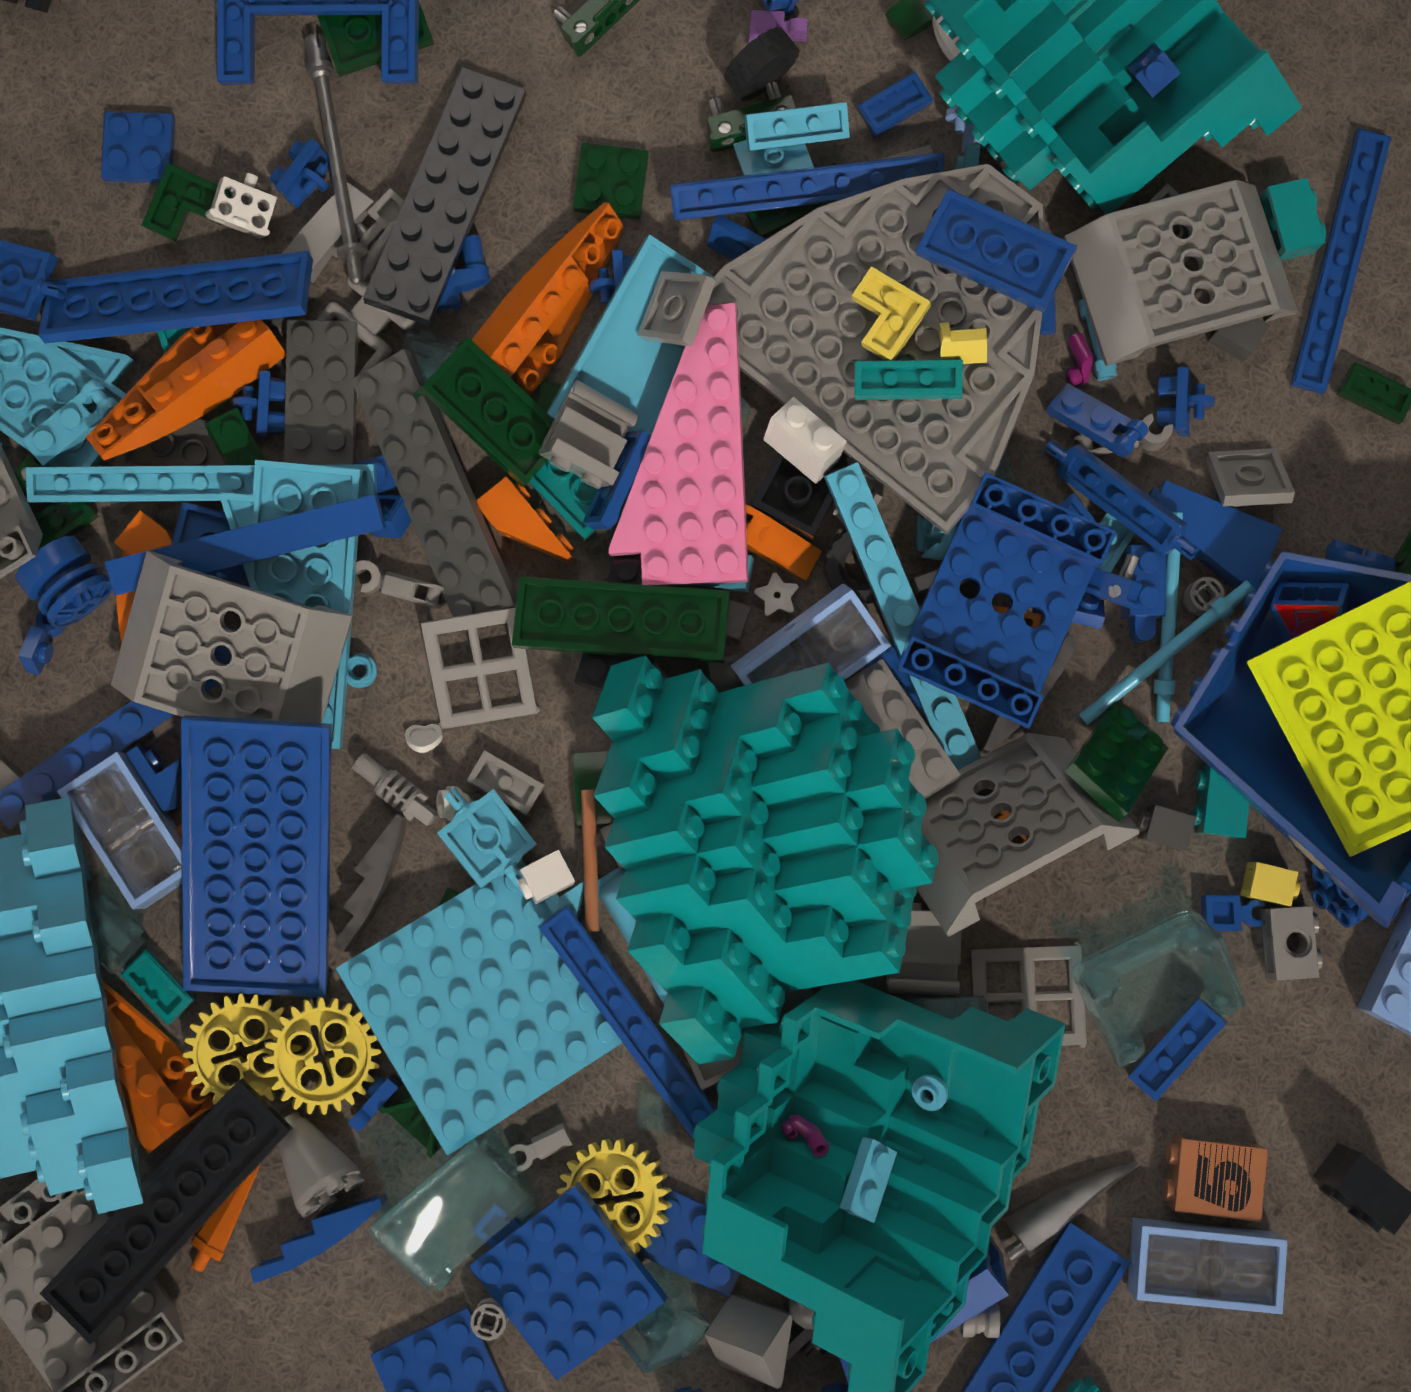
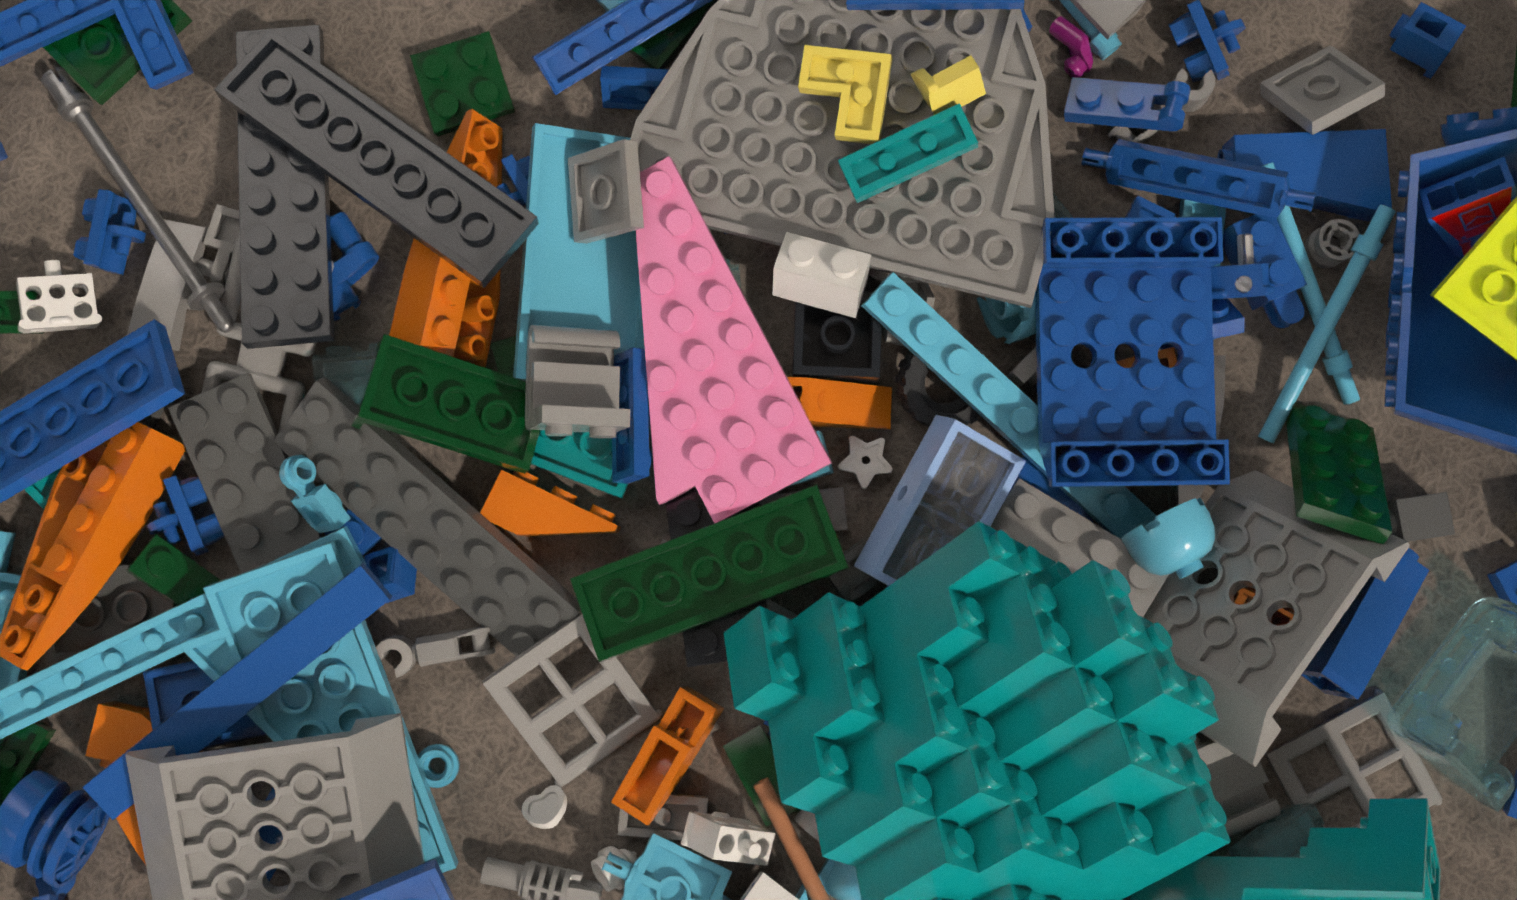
camera: 30 degrees left, 0 degrees up
(361, 439) = (316, 504): none -> medium azure plate
(522, 207) = (377, 157): none -> black plate
(530, 738) = (667, 754): none -> orange slope
(541, 815) = (727, 838): none -> white piece
(970, 751) = (1173, 540): none -> medium azure cylinder
(1088, 883) = (1365, 631): none -> blue slope
(1219, 807) = (1461, 466): teal brick -> none
(1350, 475) = (1425, 37): none -> blue brick

